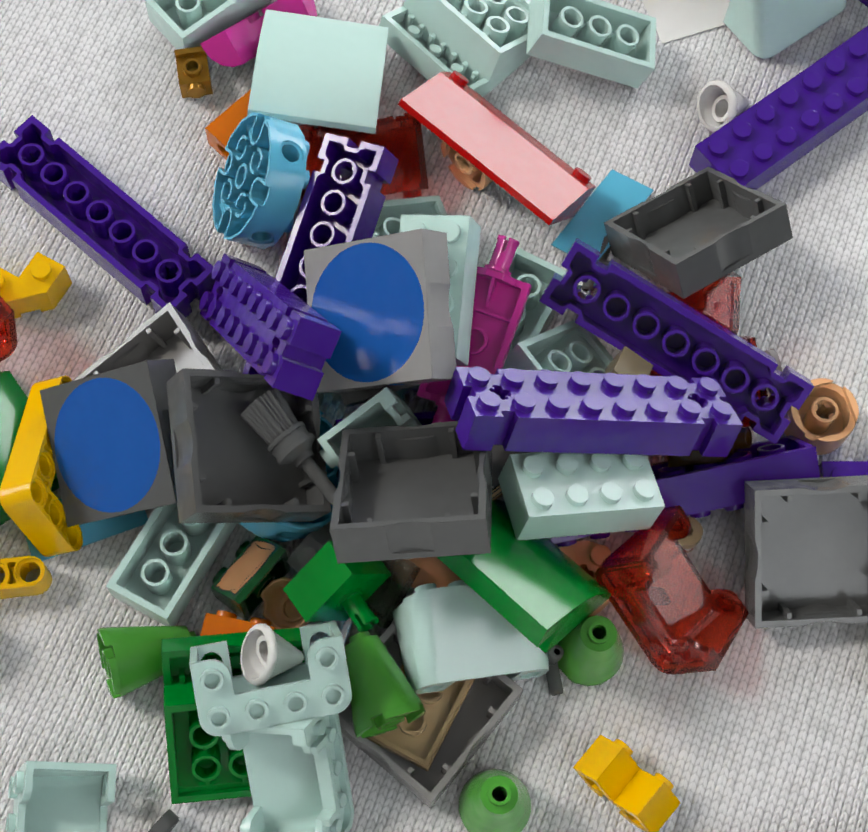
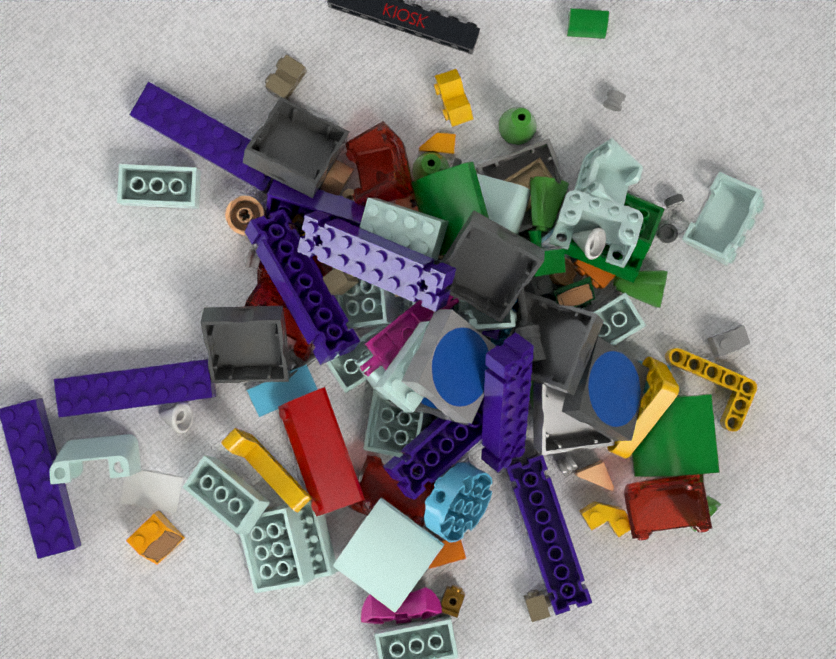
camera: 145 degrees left, 20 degrees up
(67, 123) = (537, 605): none -> dark tan brick
(71, 337) = (596, 474): none -> light nougat slope
(122, 327) = (566, 465): none -> light grey wheel
(145, 769) = (667, 233): none -> dark grey tile
(558, 102) = (247, 446): none -> yellow beam
(600, 701) = (439, 143): none -> light orange tile
(724, 551) = (337, 178): none -> light nougat slope

